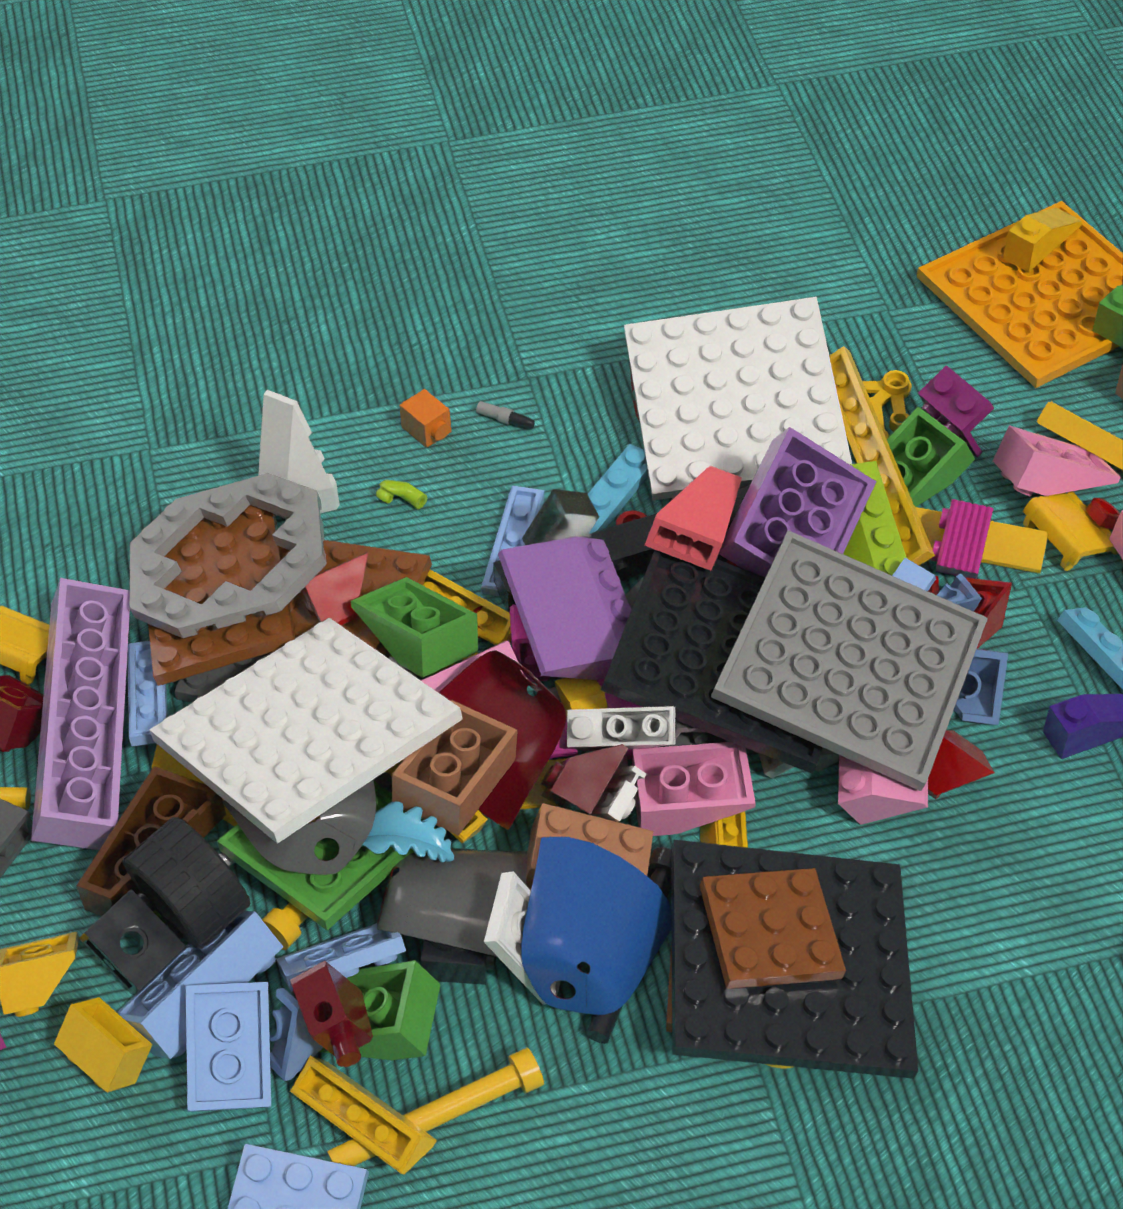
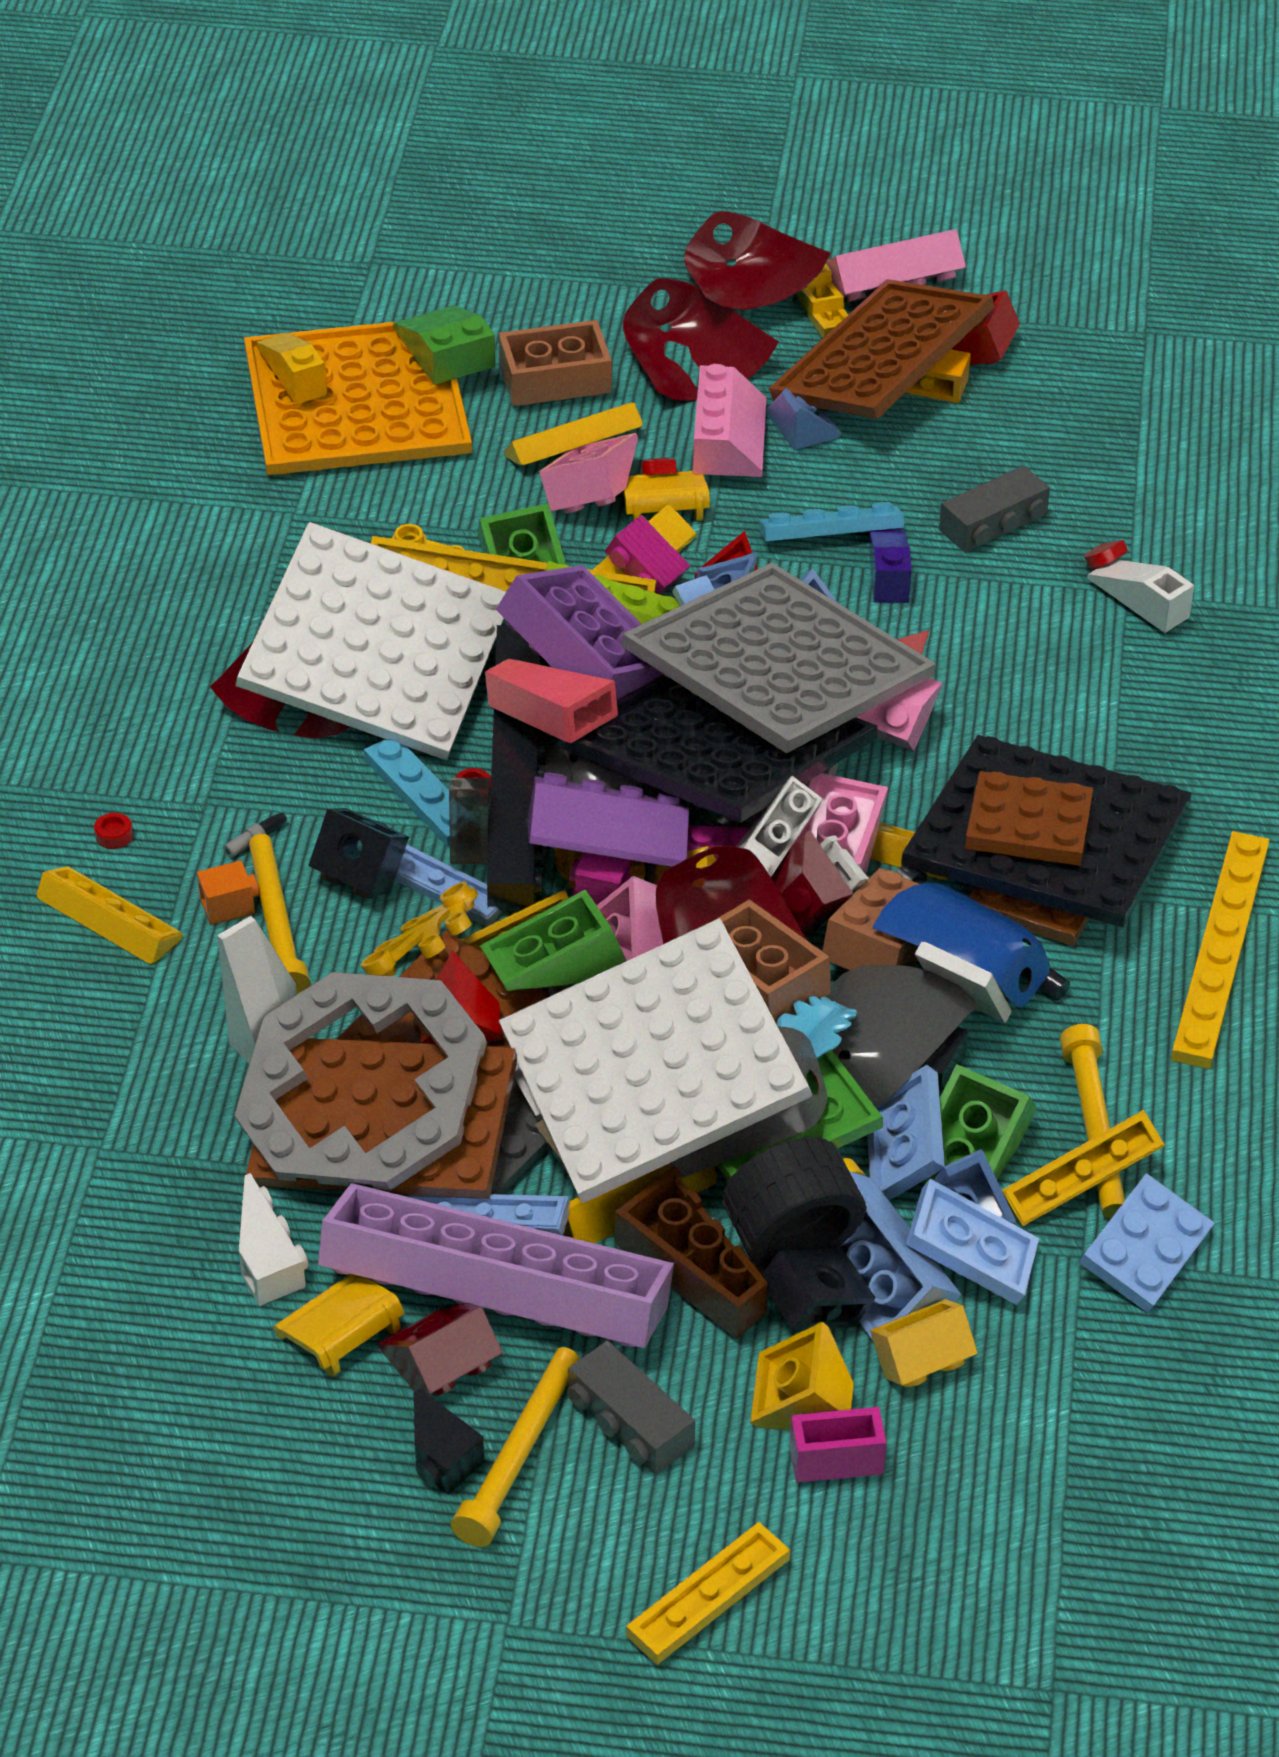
camera: 70 degrees left, 5 degrees down
(78, 561) = (267, 1255): none -> white slope
(333, 1012) = (997, 1132): dark red torso -> none
(354, 485) = (275, 909): none -> yellow piece
(382, 366) = (107, 914): none -> yellow slope
(405, 490) = (313, 942): lime arm -> none
(426, 547) = (456, 902): none -> yellow plant
(467, 336) = (113, 830): none -> red tile
(497, 474) = (339, 858): none -> black brick
(726, 1163) = (1220, 950): none -> yellow plate
(955, 405) = (494, 491): magenta bracket -> none

